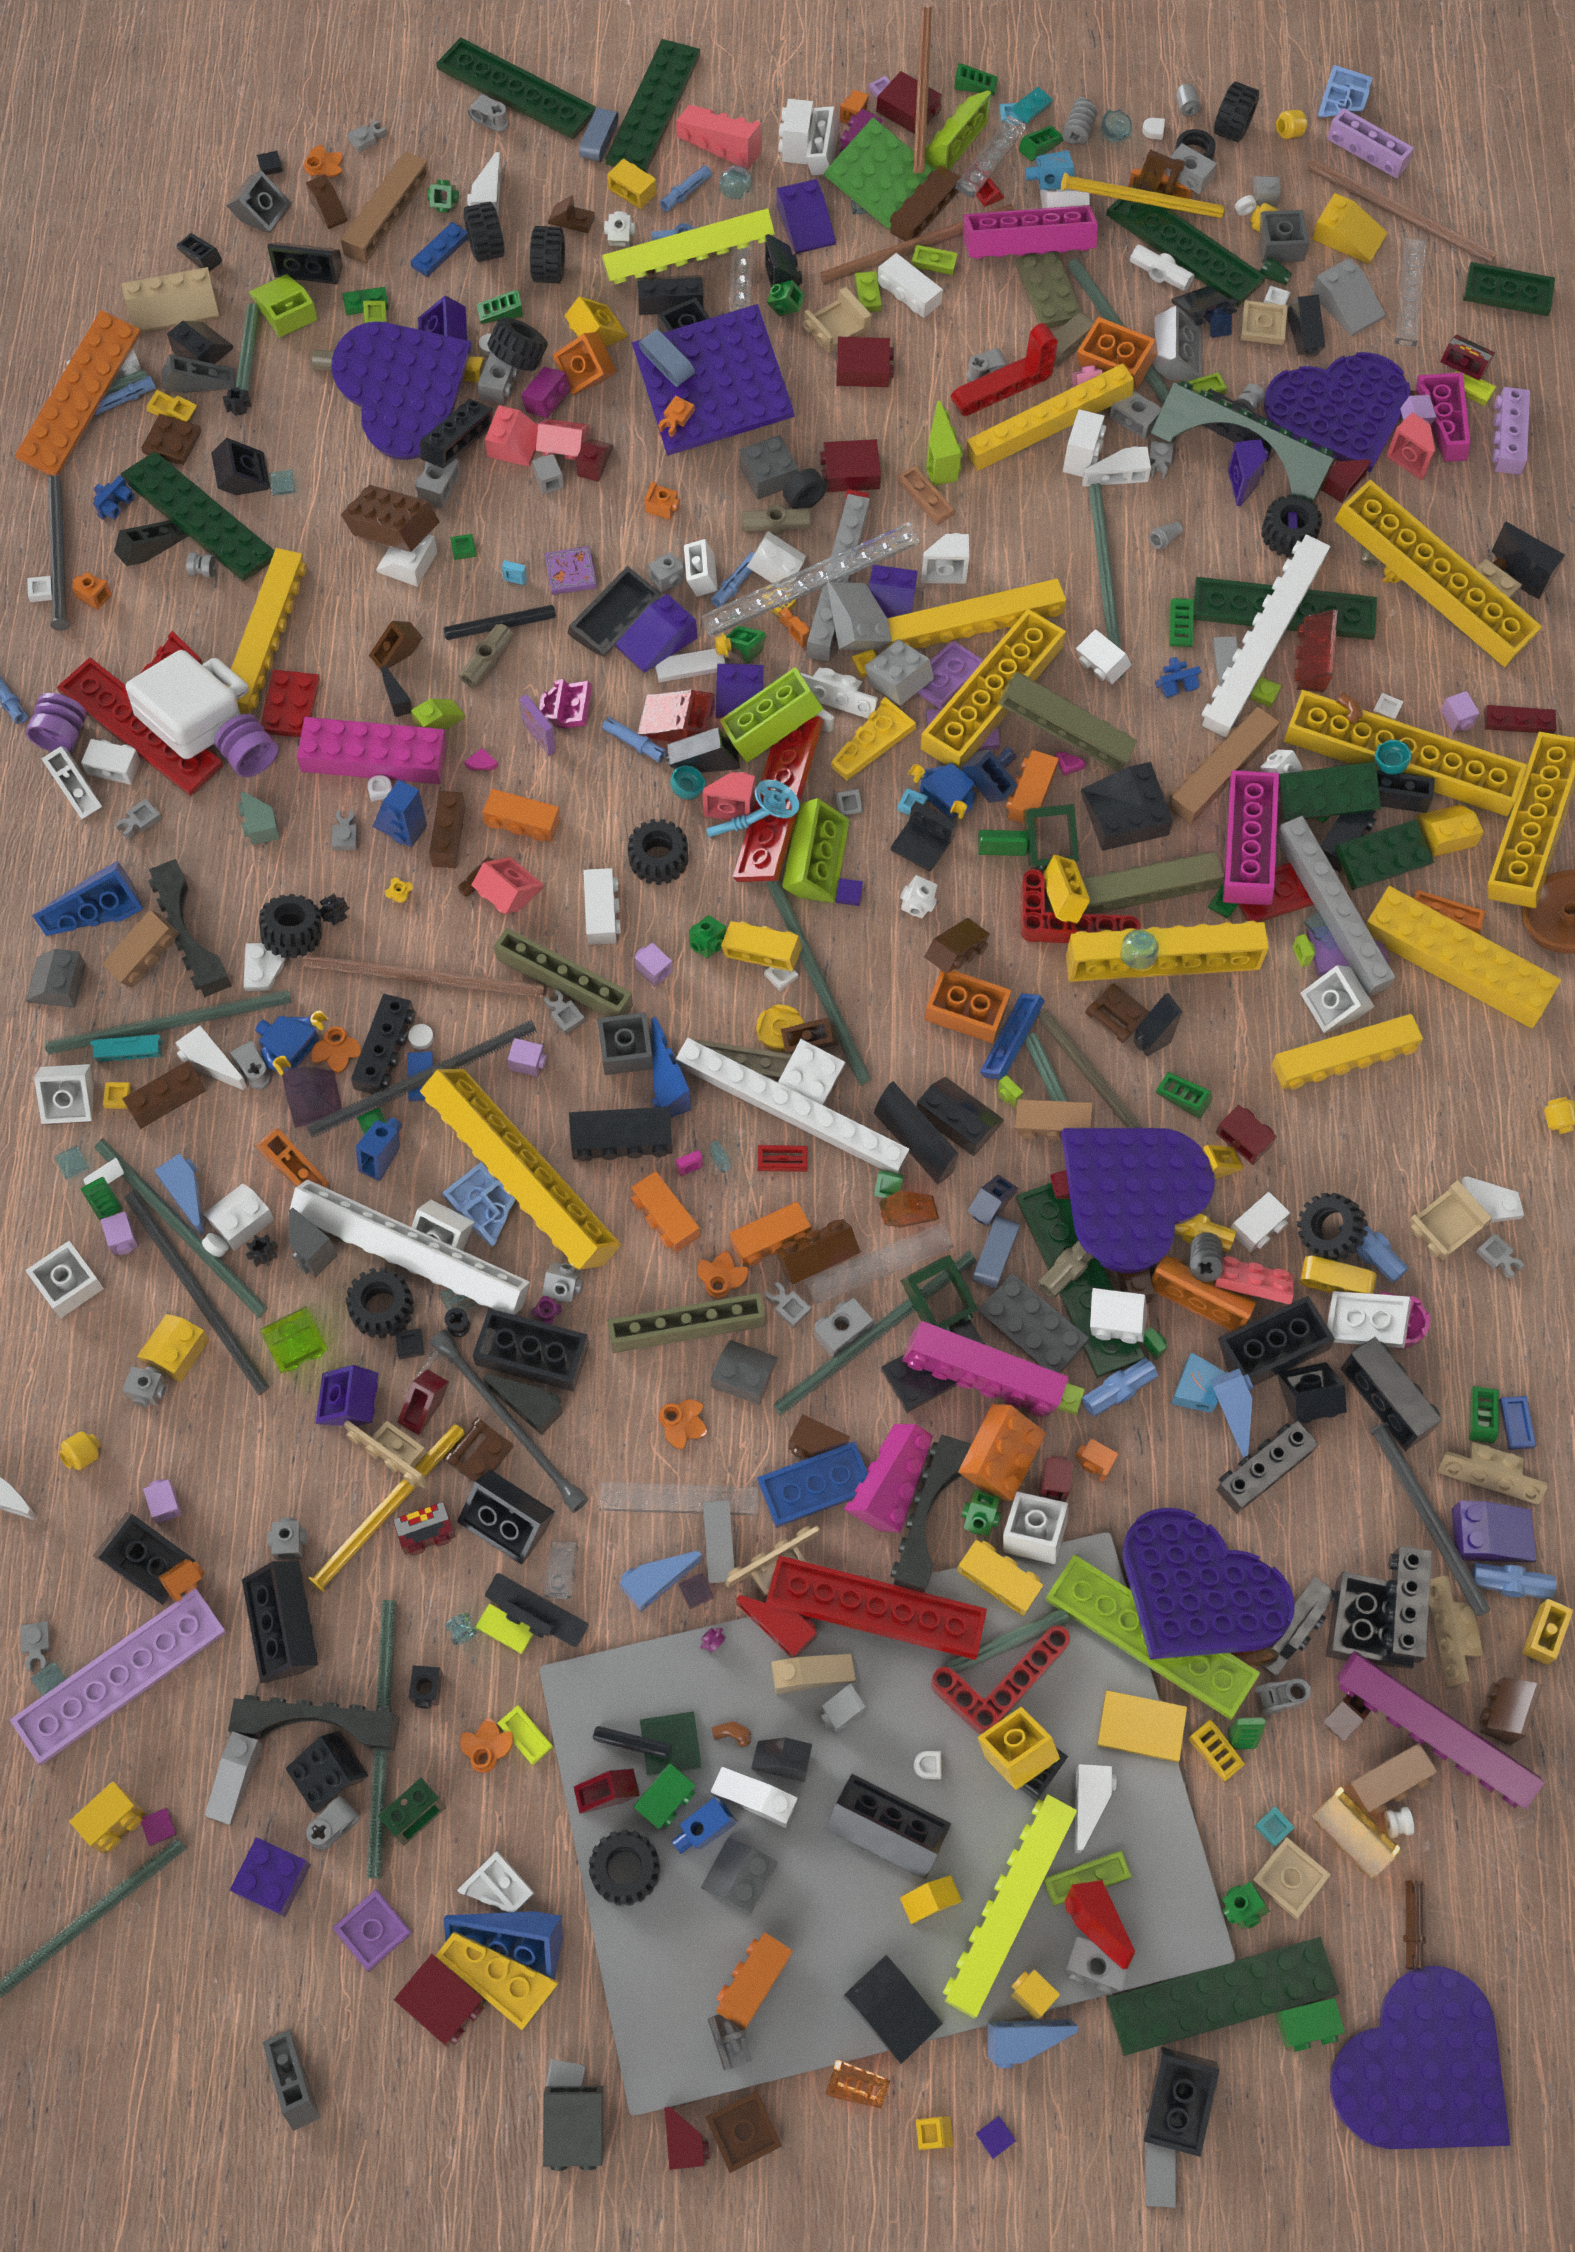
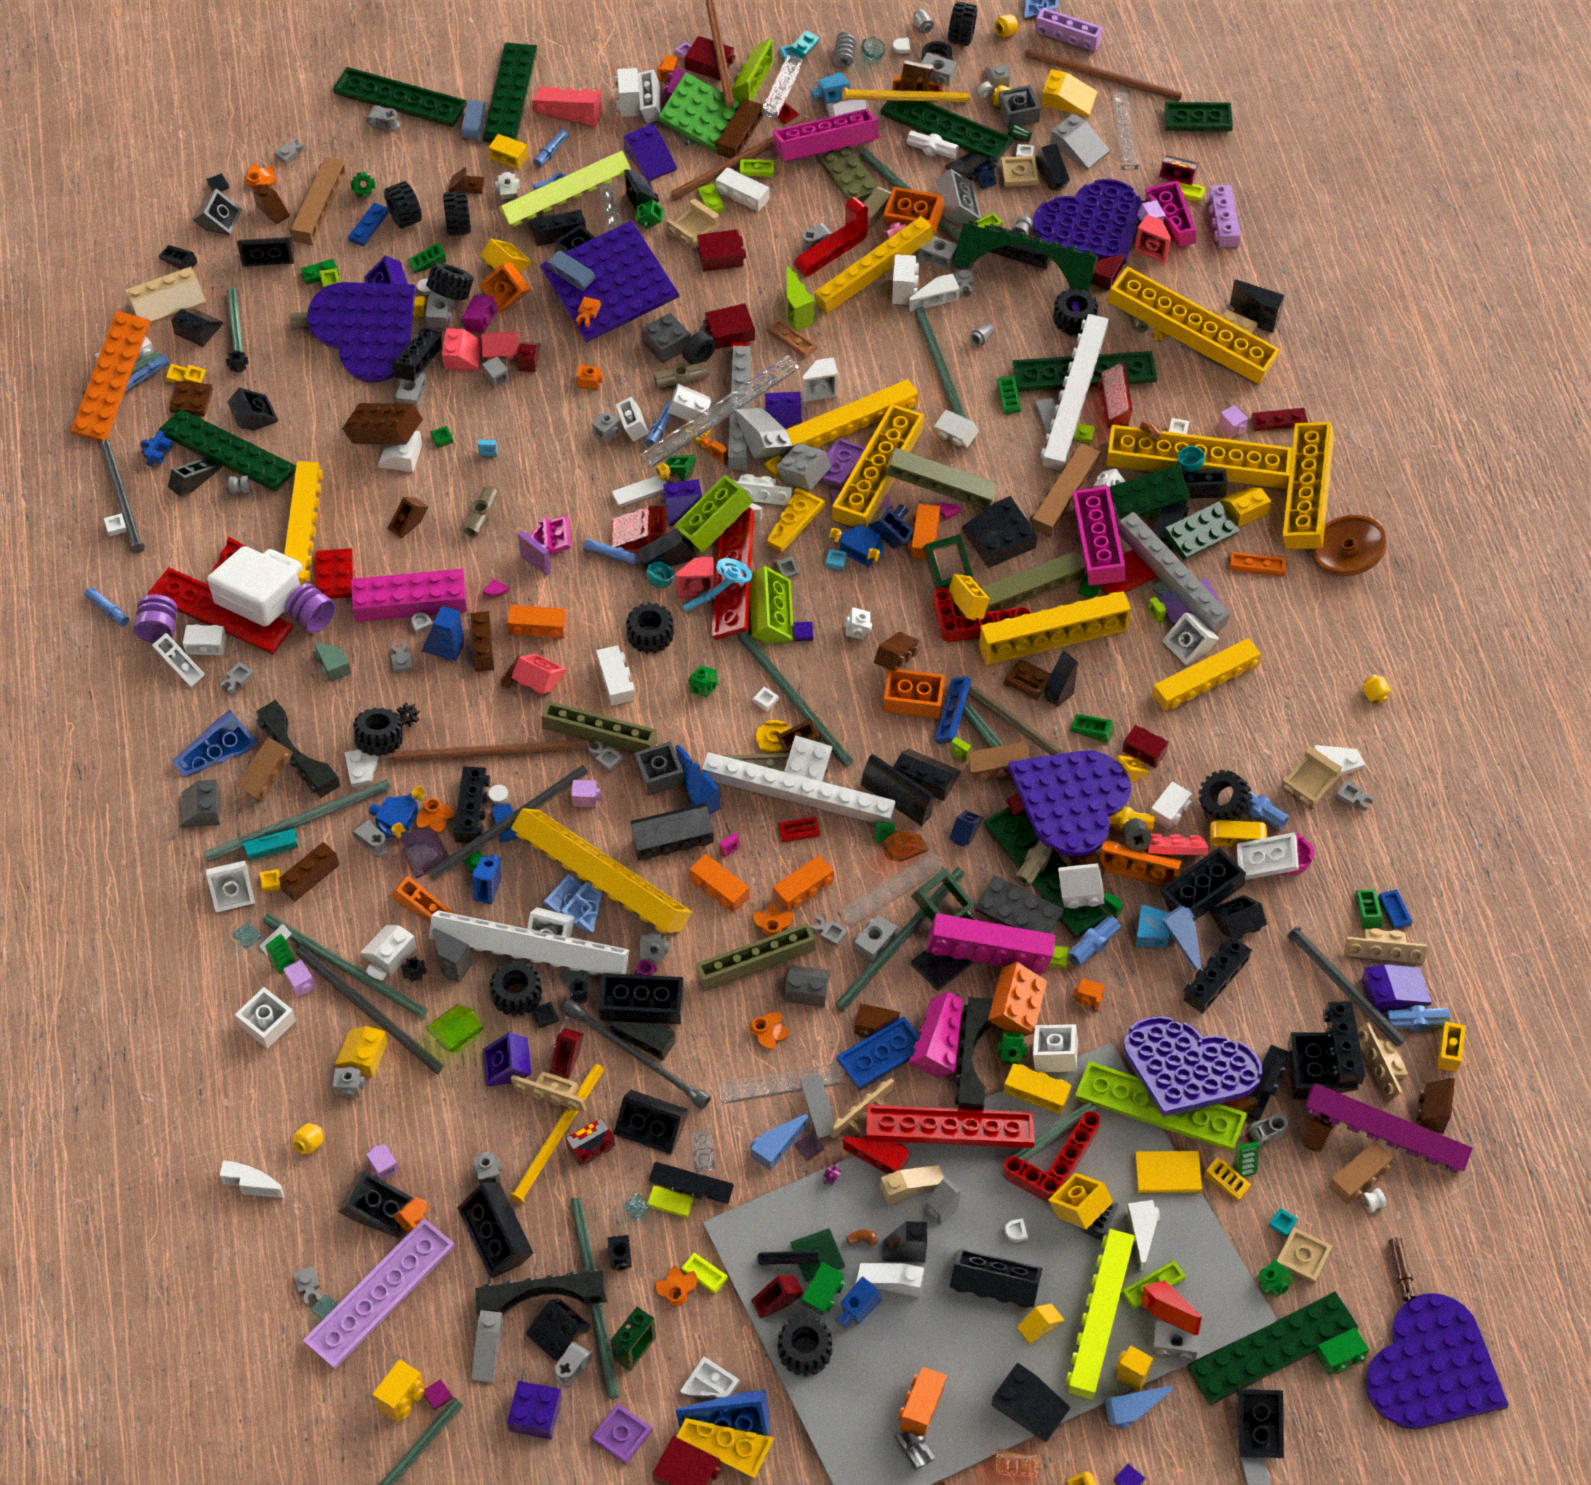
camera: 10 degrees left, 10 degrees down
(91, 590) = (156, 518): orange brick -> none
(182, 1184) = (337, 933): medium blue slope -> none
(192, 375) = (199, 348): dark grey slope -> none
(208, 1058) = (338, 839): white slope -> none
(282, 482) = (287, 415): clear light blue tile -> none
(284, 305) = (257, 284): lime slope -> none
(398, 698) = (418, 553): black slope -> none
(398, 896) = (454, 697): yellow plate -> none
(437, 714) = (452, 559): lime slope -> none
(486, 1456) = (626, 1080): reddish brown plate -> none
(487, 184) = (395, 170): white slope -> none
(509, 620) = (476, 489): black axle -> none
(570, 570) = (530, 439): medium lavender tile -> none
(613, 612) = (572, 463): black slope -> none
(653, 964) = (666, 709): lavender brick -> none
(658, 633) = (611, 472): dark purple slope -> none
(719, 1156) = (751, 836): clear light blue tile -> none
(735, 182) = (588, 137): clear light blue hair -> none
(739, 1875) = (893, 1334): dark grey slope -> none
(761, 946) = (746, 680): yellow brick -> none
(817, 1251) = (843, 887): reddish brown brick -> none
(924, 837) = (851, 580): black bracket -> none
(968, 77) = (751, 33): green slope -> none
(996, 1252) = (978, 864): sand blue beam -> none
(1002, 842) = (911, 575): green panel -> none
(1039, 143) = (816, 71): green slope -> none
(1056, 1478) = (1062, 1009): dark red brick -> none
(1139, 949) = (1035, 626): clear light blue hair -> none
(1169, 682) = (1010, 438): blue hips -> none
(1246, 468) = (1031, 276): dark purple slope -> none
(1356, 1833) = (1344, 1213): clear yellow brick -> none
(1391, 1393) = (1296, 904): black brick -> none
(1462, 957) = (1276, 592): yellow brick -> none

